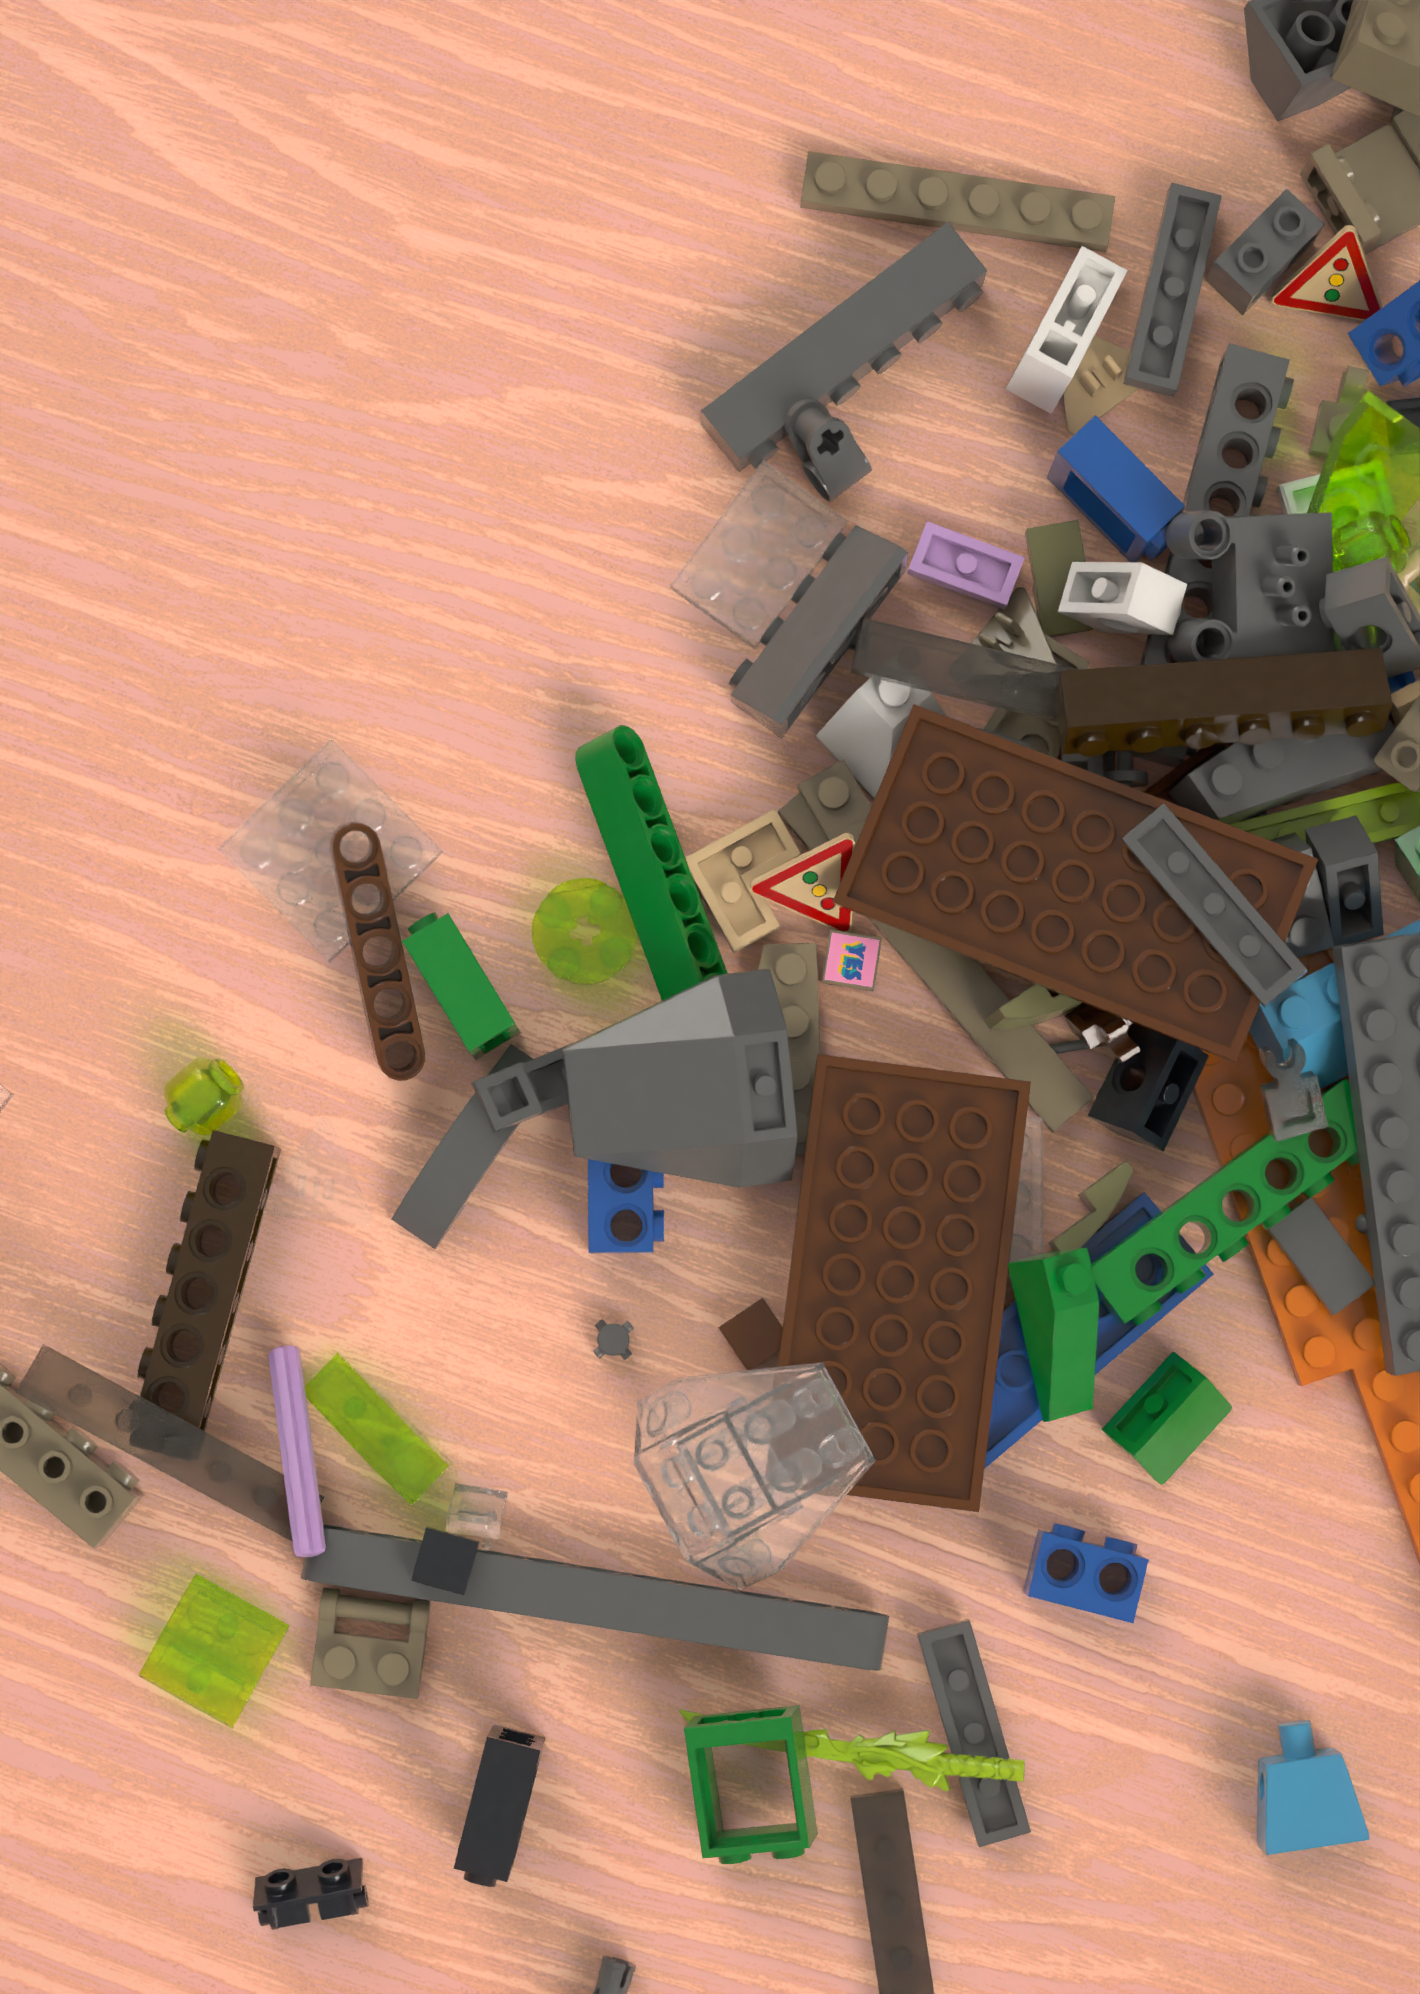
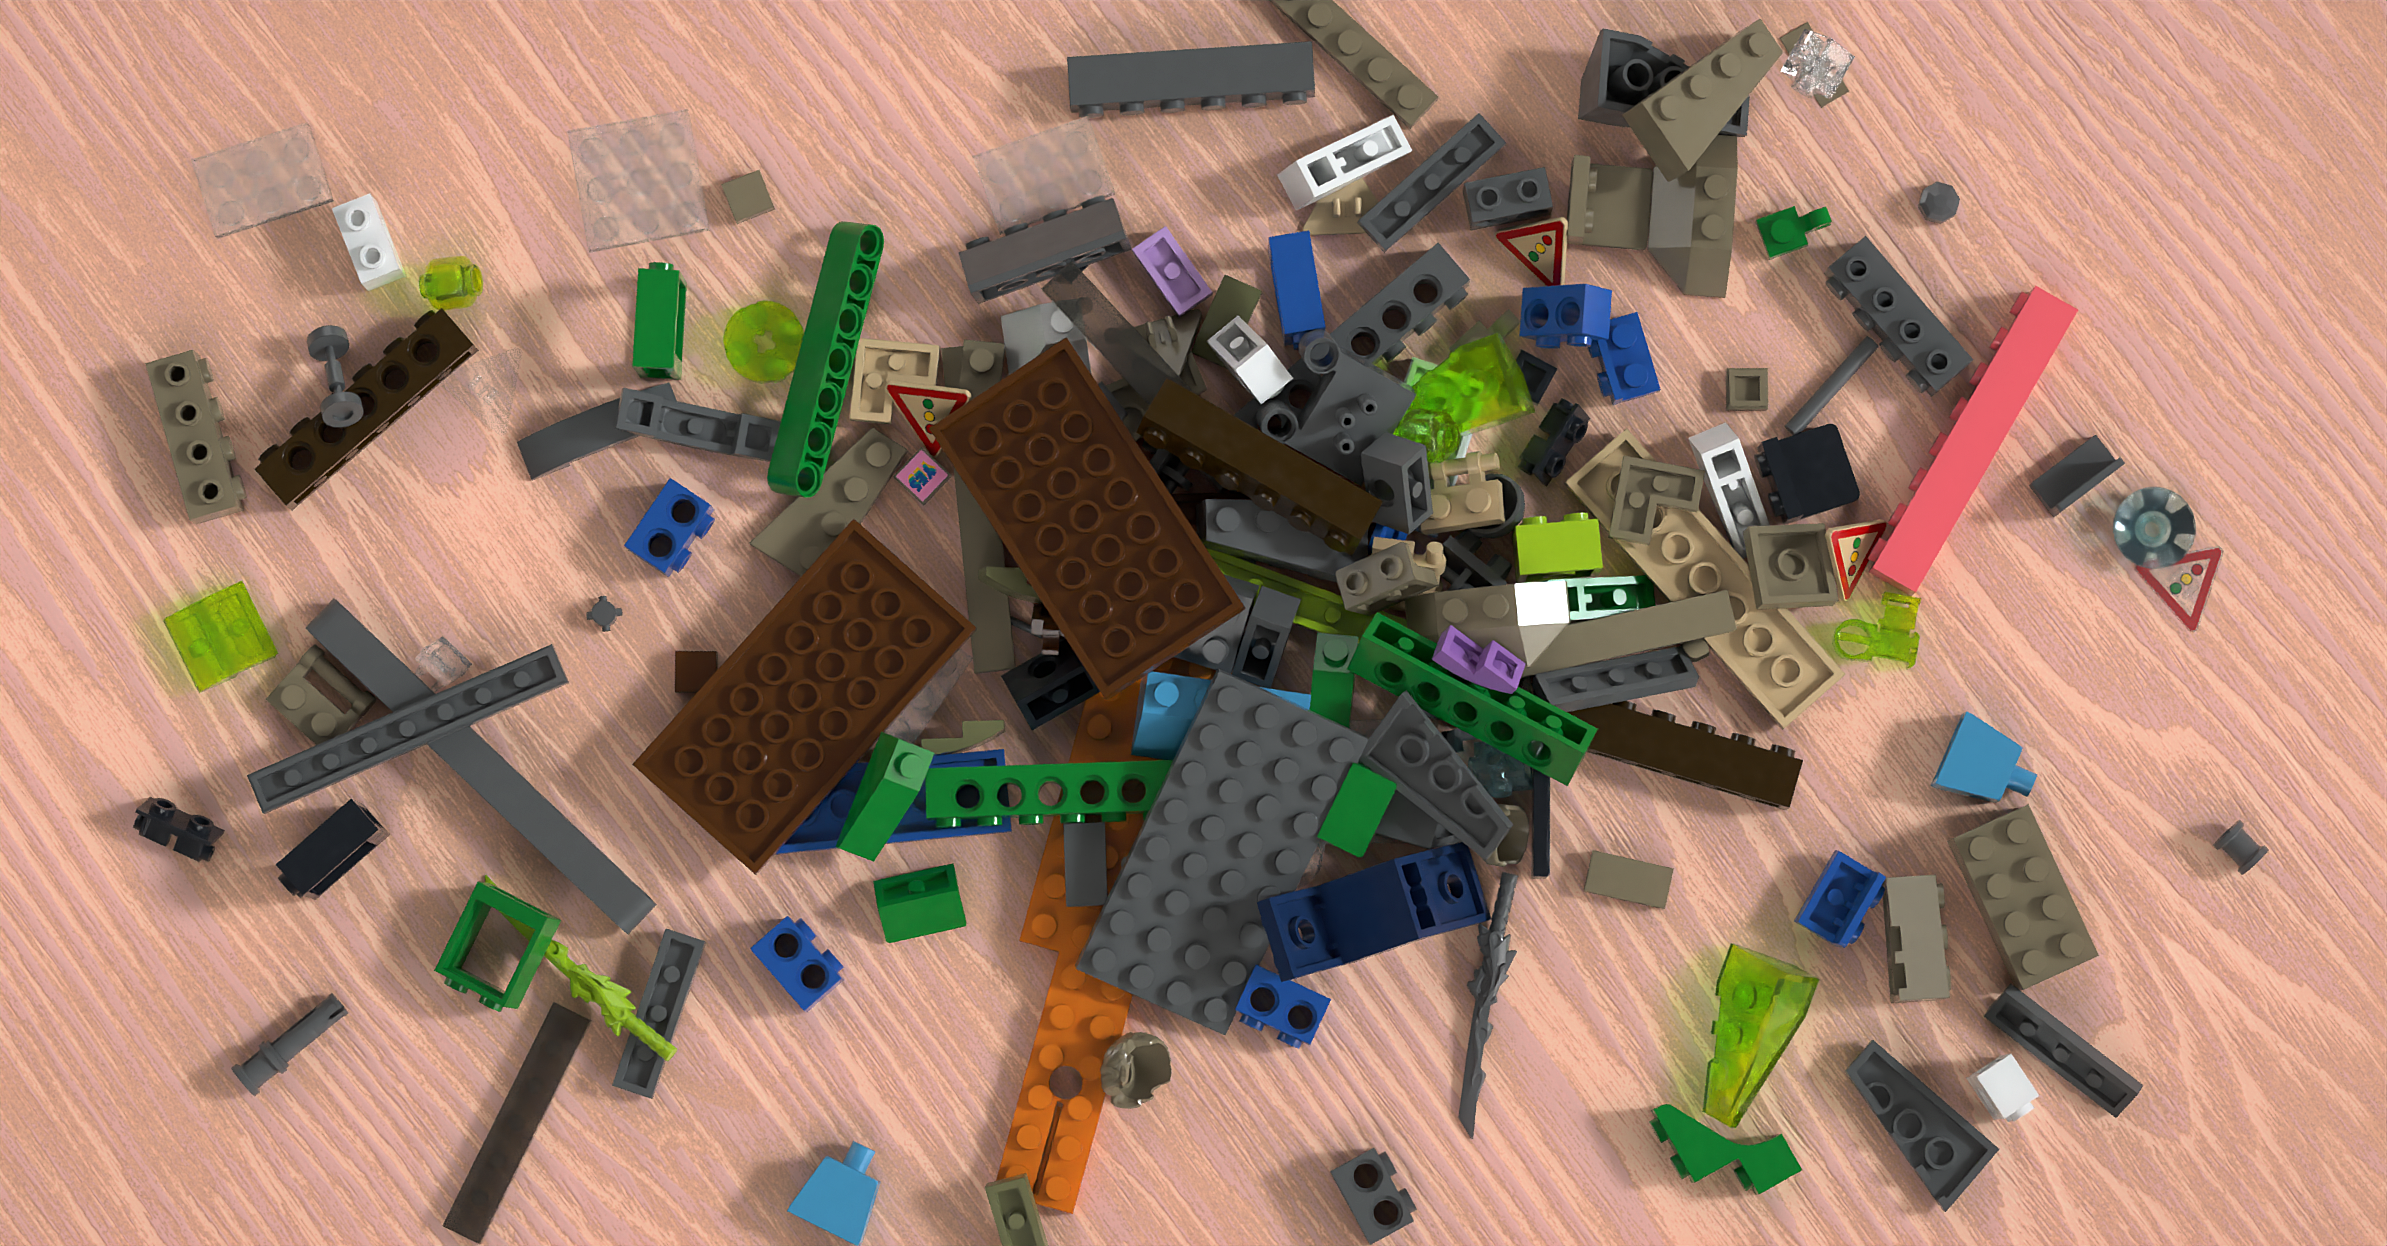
camera: 40 degrees right, 0 degrees up
(83, 1112) = (369, 242): none -> white brick
(158, 1438) = (280, 487): clear smoke tile -> none
(178, 1312) = (329, 344): none -> dark grey wheel
(297, 1451) = (356, 546): lavender axle -> none
(376, 1429) = (416, 568): clear neon green slope -> none
(392, 973) = (617, 284): reddish brown beam -> none
(445, 1560) = (401, 676): black tile -> none
(459, 789) = (748, 196): none -> dark tan tile
(490, 1614) = (408, 729): none -> dark grey tile
(690, 1086) = (757, 483): dark grey wedge -> none
(747, 1464) = (628, 746): clear wedge -> none
(825, 448) = (1131, 134): dark grey piece -> none
(1214, 905) = (1156, 589): dark grey plate -> none
(1293, 1099) = (1127, 747): clear smoke plate -> none

